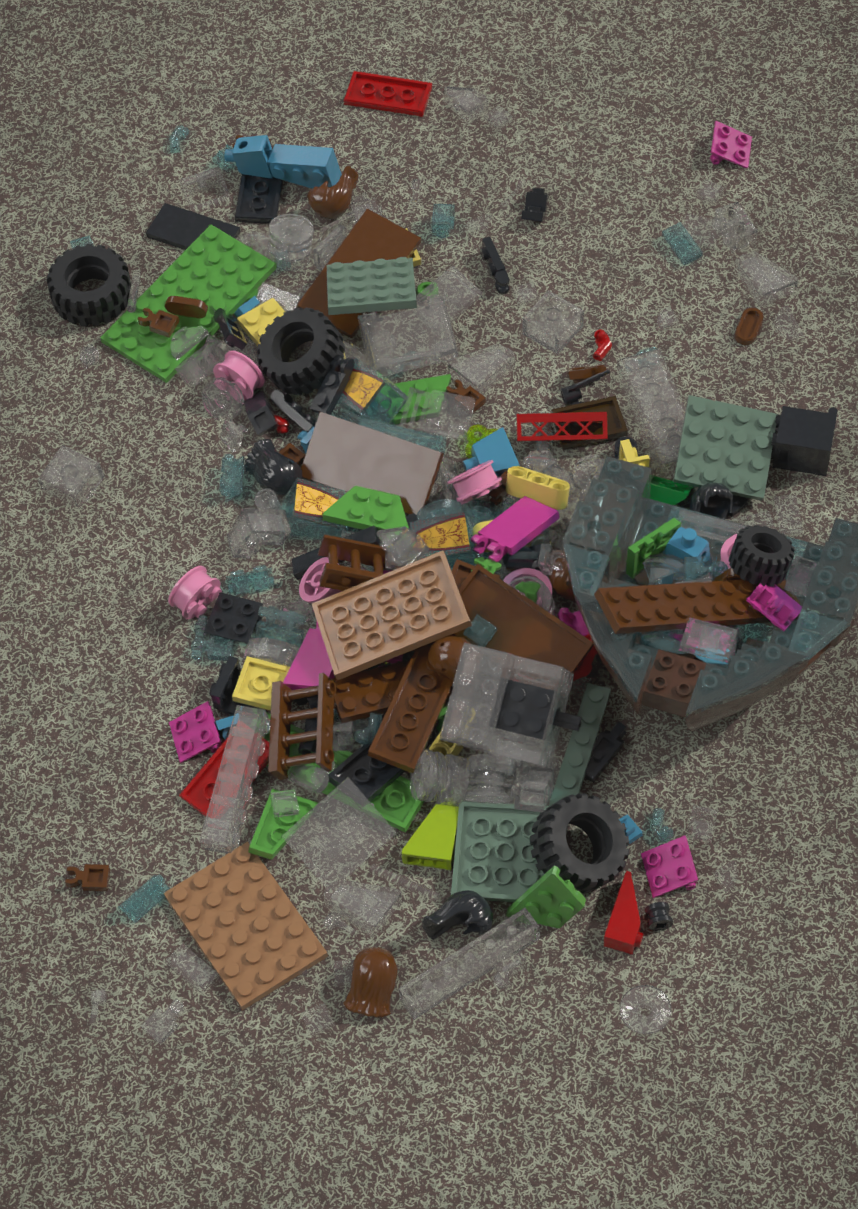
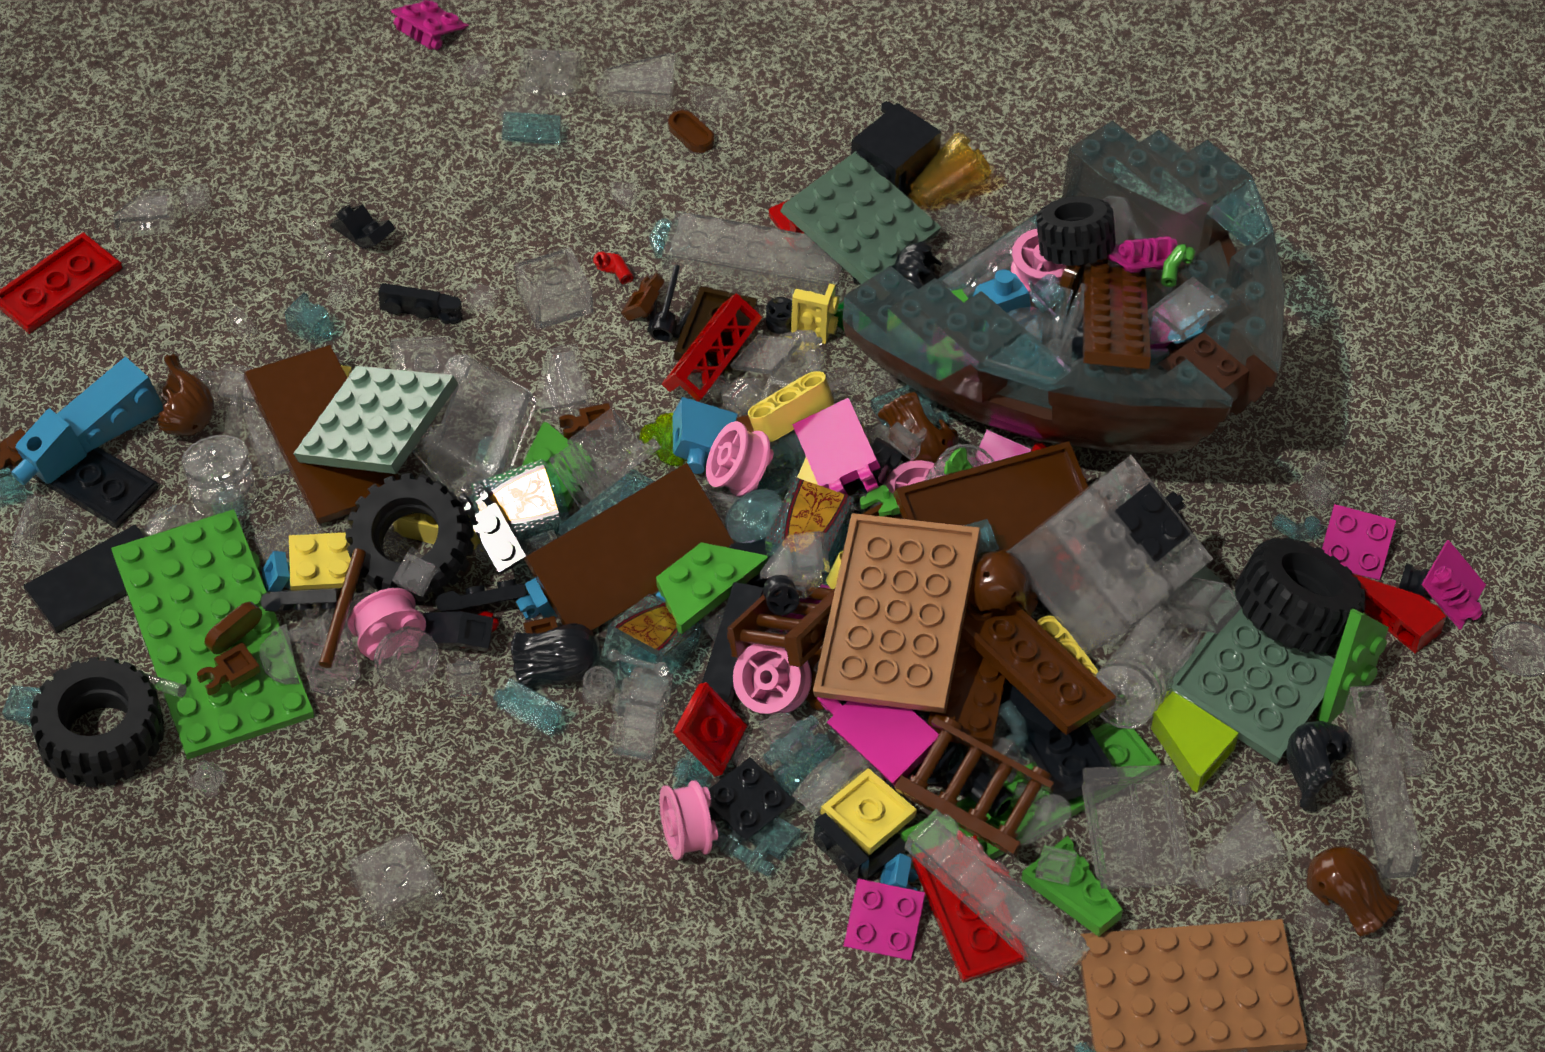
camera: 65 degrees left, 5 degrees down
(209, 350) = (342, 608): none -> reddish brown bar
(267, 365) = (414, 574): none -> clear tile
(267, 572) = (710, 729): none -> red tile
(286, 521) = (660, 668): none -> clear hinge
(370, 550) = (784, 602): none -> black wheel
(579, 456) = (765, 354): none -> clear piece
(669, 941) = (1454, 586): none -> dark pink hinge
(771, 624) = (1171, 264): none -> bright green arm
(817, 480) = (950, 173): none -> clear yellow cone

